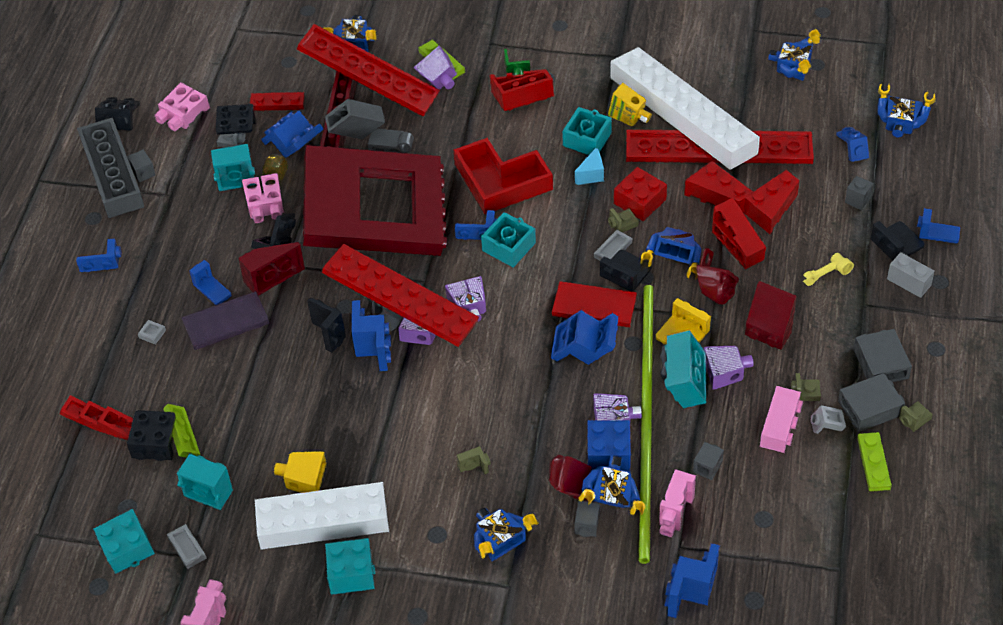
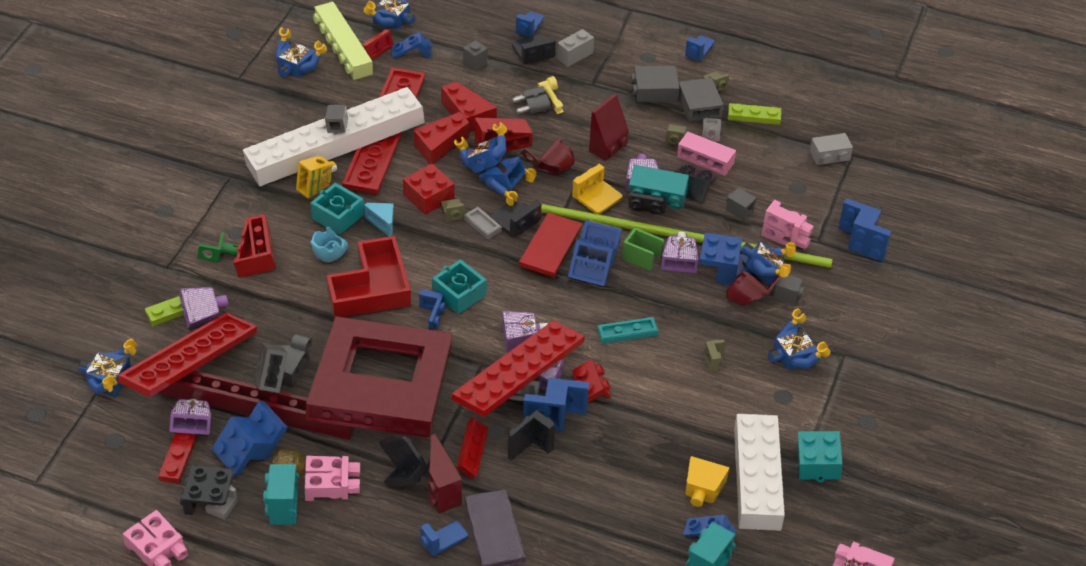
camera: 85 degrees left, 5 degrees down
(242, 486) = (696, 525): none -> blue bracket
(309, 93) = (190, 417): none -> medium lavender torso
(313, 288) = (472, 448): none -> red plate
(416, 366) = (593, 374): none -> red bracket
(495, 387) = (627, 330): none -> teal tile
(538, 136) = (328, 246): none -> medium azure hair
(600, 367) = (641, 247): none -> bright green piece
(684, 91) = (336, 119): none -> dark grey brick
(697, 221) = (484, 154): none -> blue torso
(733, 410) = (697, 182): none -> black bracket
(810, 257) = (535, 99): none -> dark grey piece
(834, 542) = (831, 149): none -> light grey brick
(839, 87) = (343, 41): none -> yellowish green brick
(842, 114) = (378, 44): none -> red plate
(967, 392) = (698, 48): none -> blue bracket

